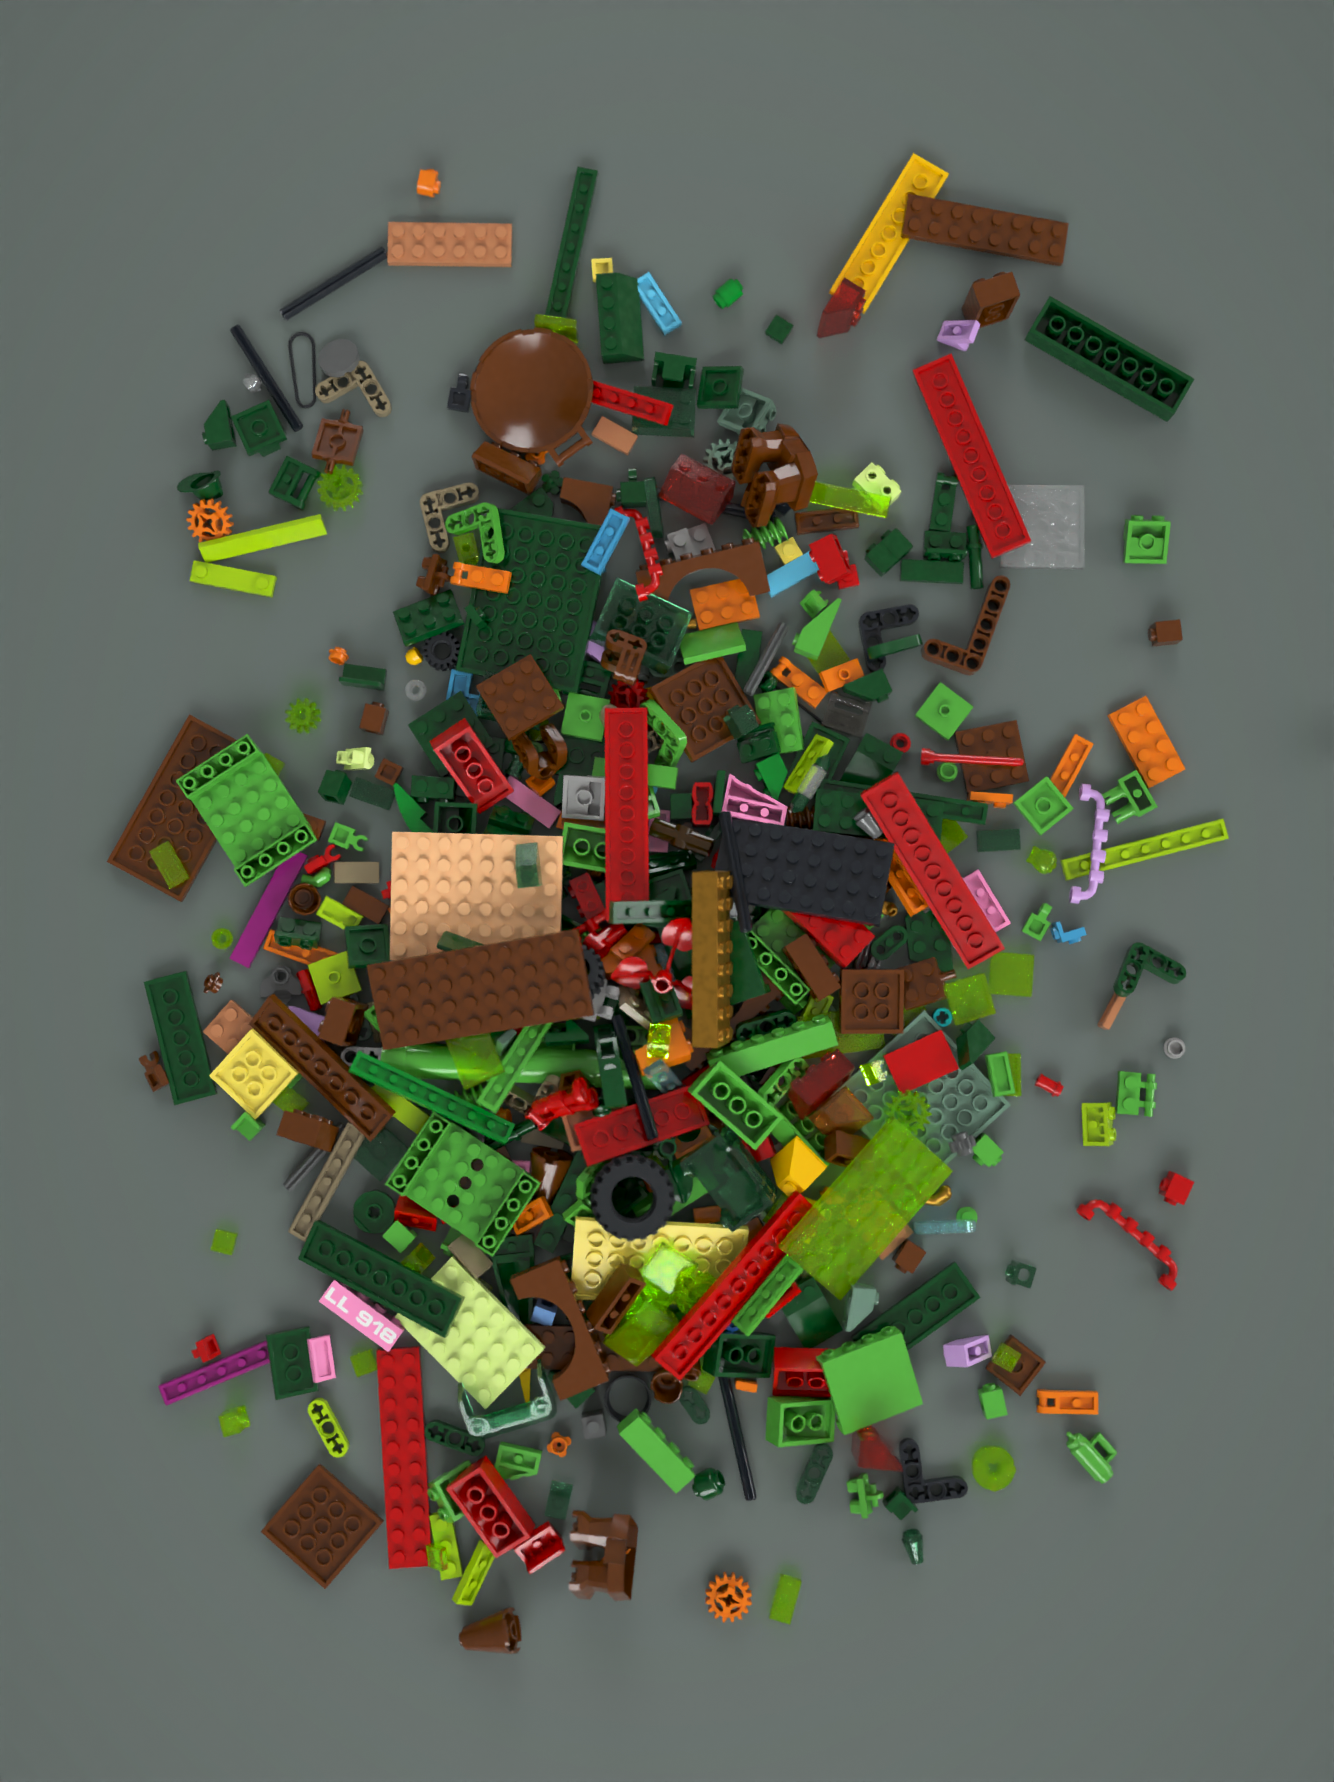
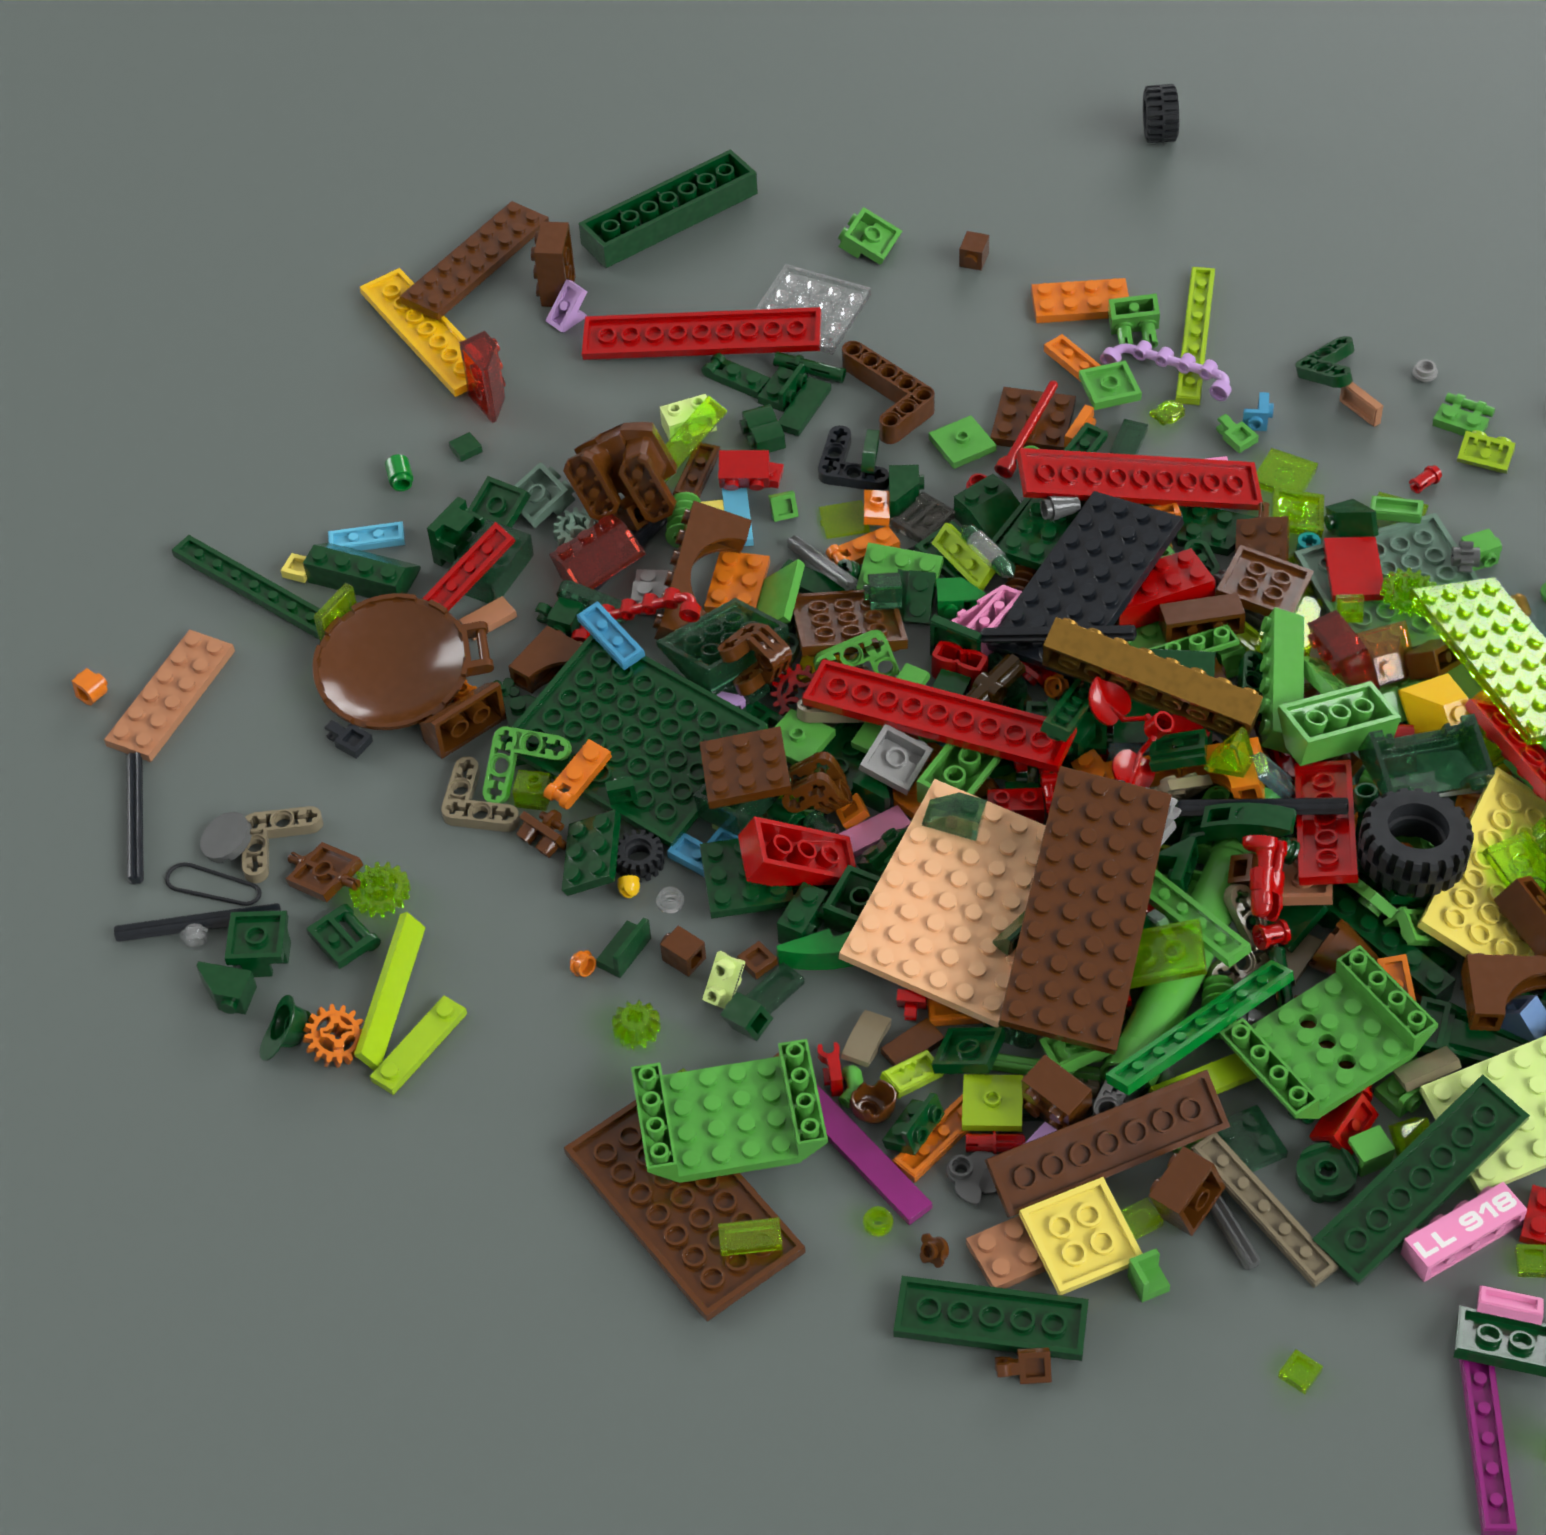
camera: 60 degrees left, 35 degrees down
(206, 1348) = (1449, 1443): red tile -> none
(344, 837) = (817, 1031): bright green plate -> none
(815, 632) = (820, 515): bright green slope -> none

